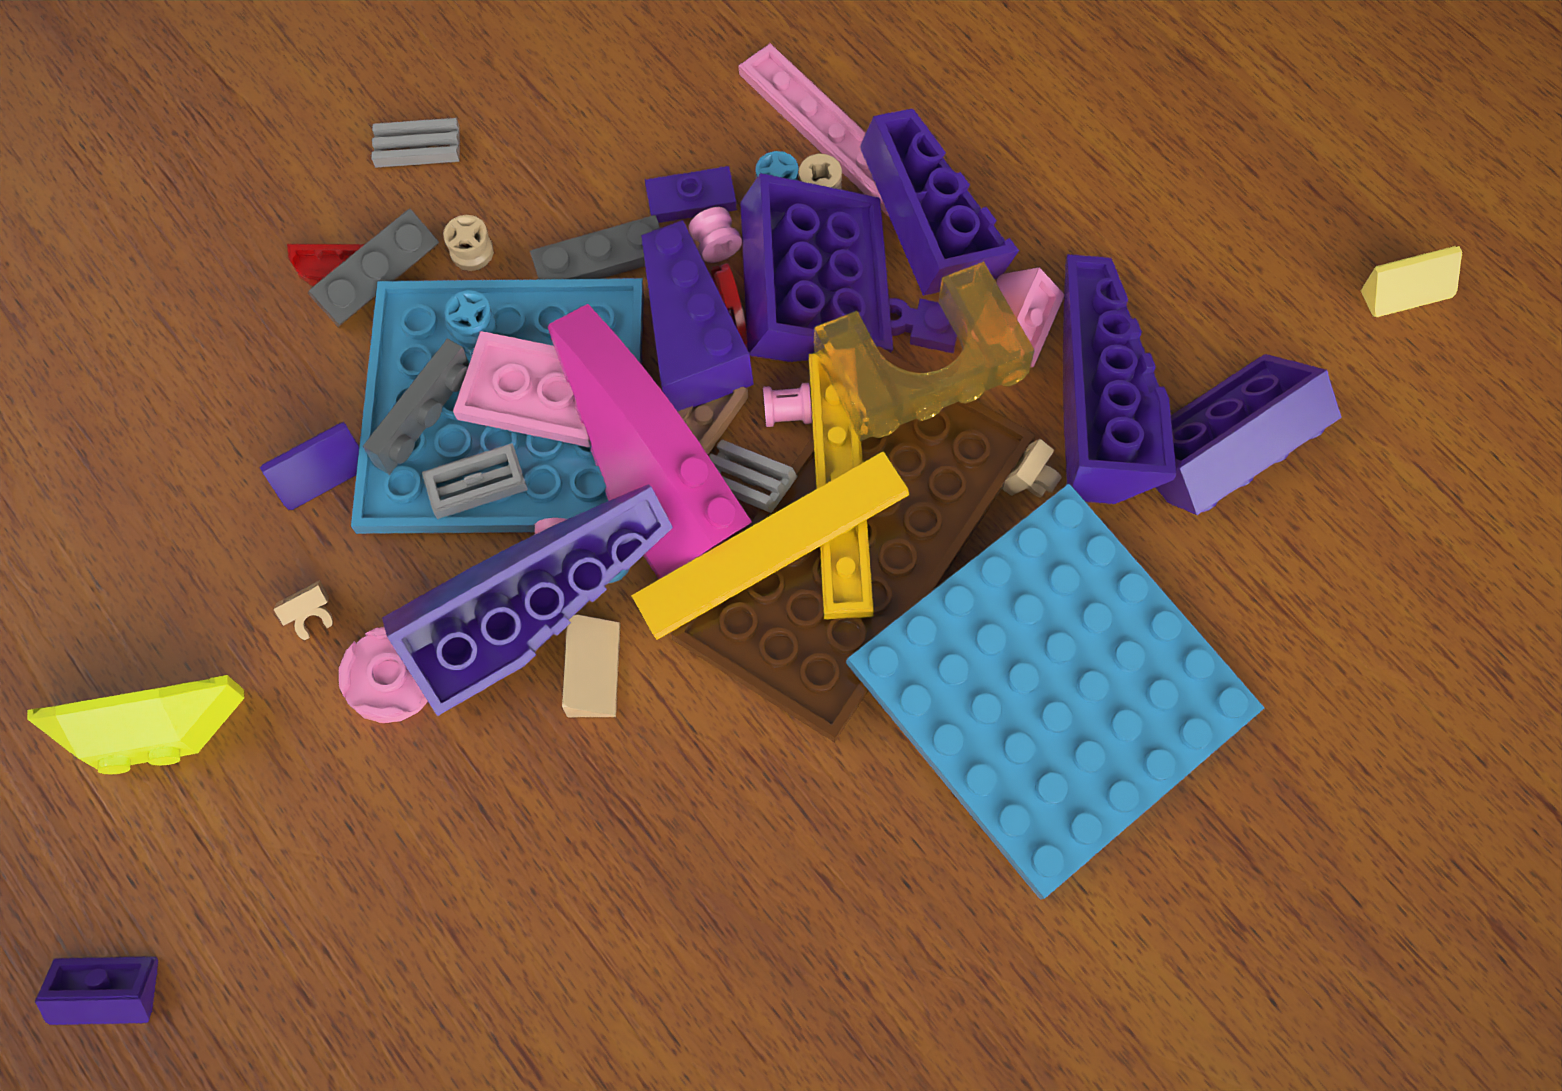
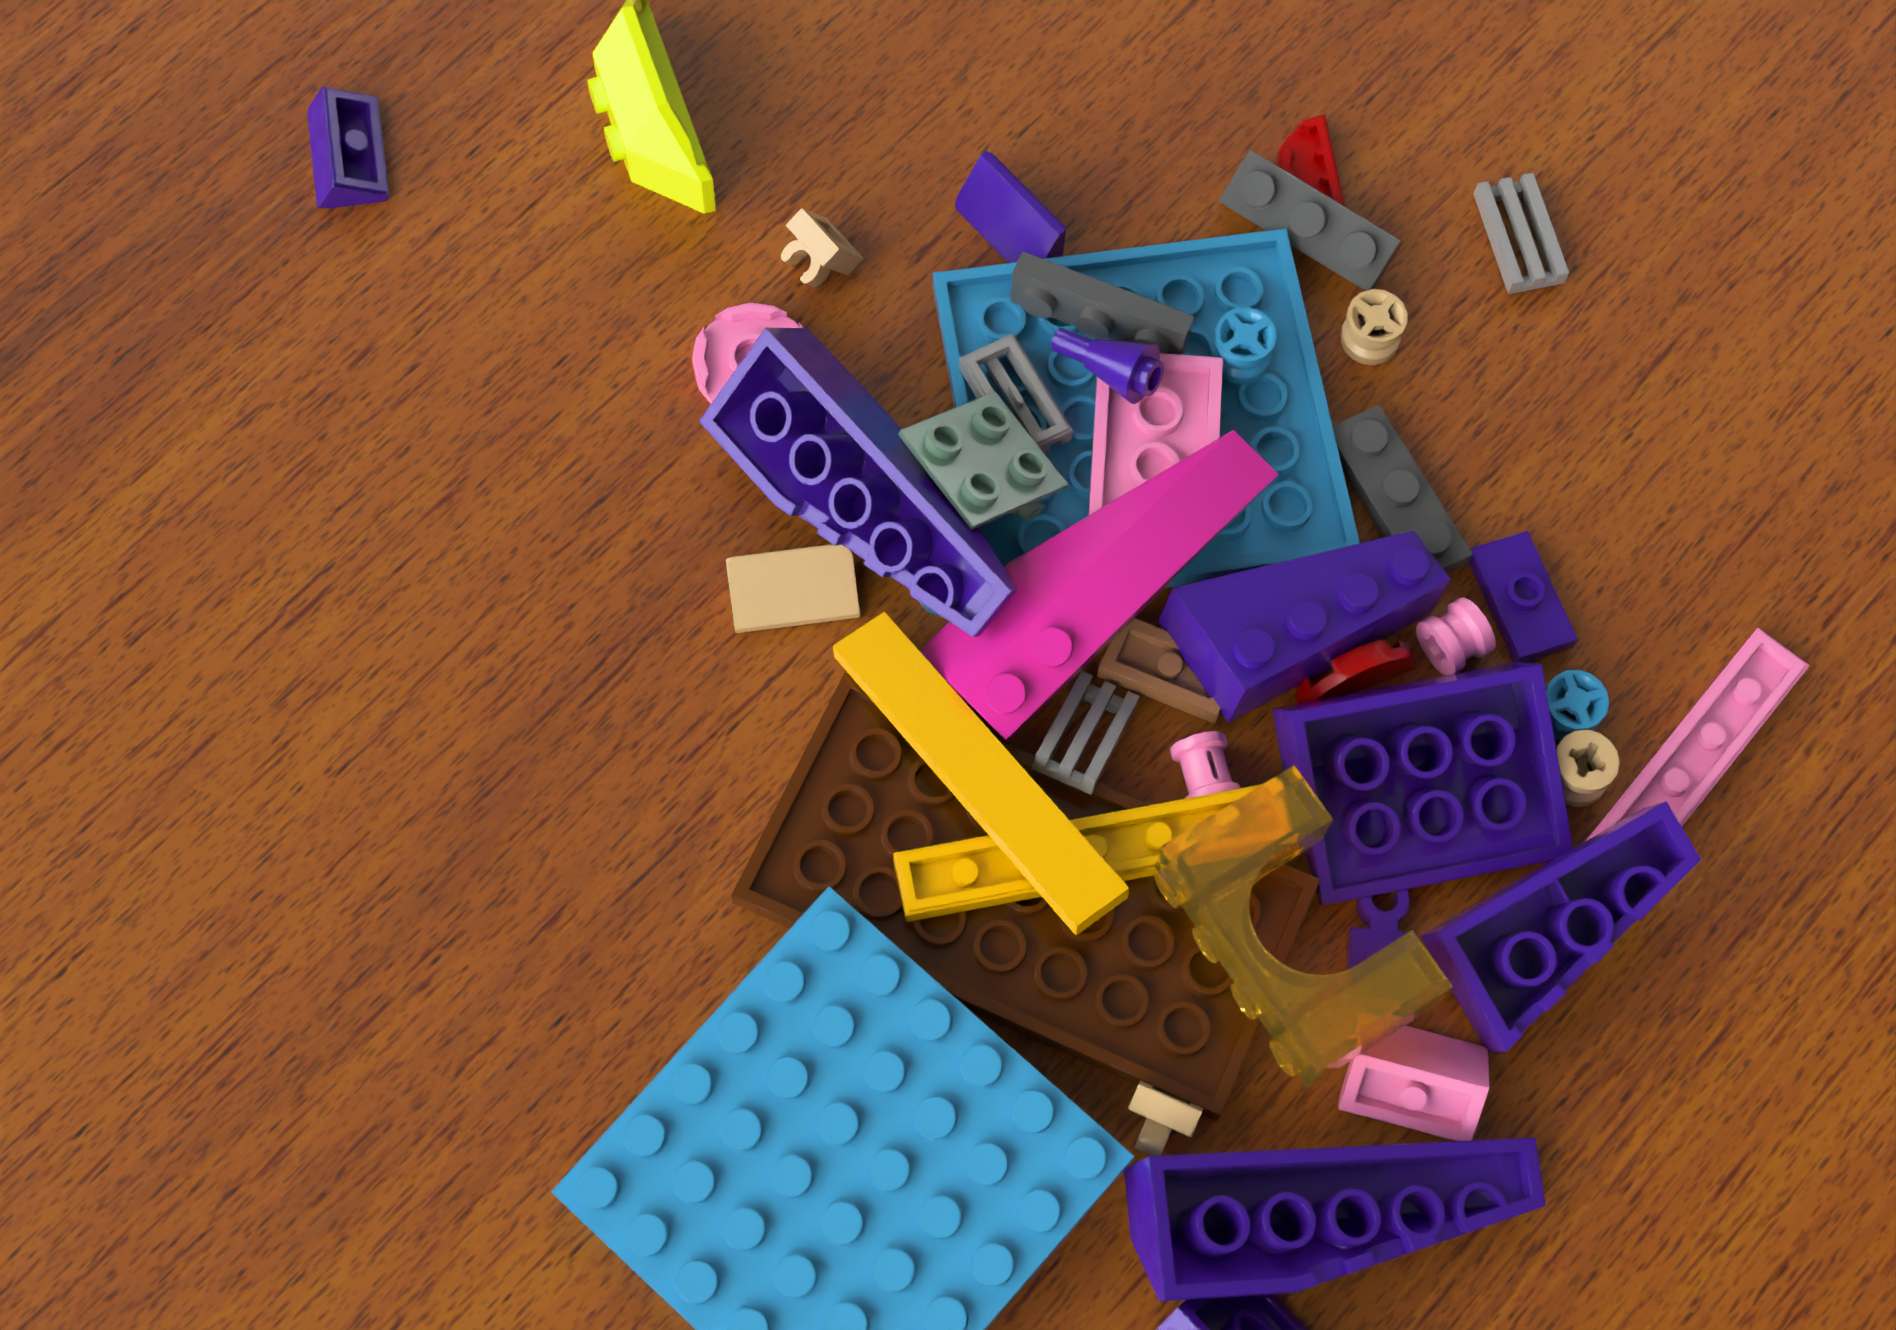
camera: 75 degrees right, 0 degrees up
(474, 394) = (1126, 367): none -> dark purple cone
(530, 500) = (984, 461): none -> sand green hinge

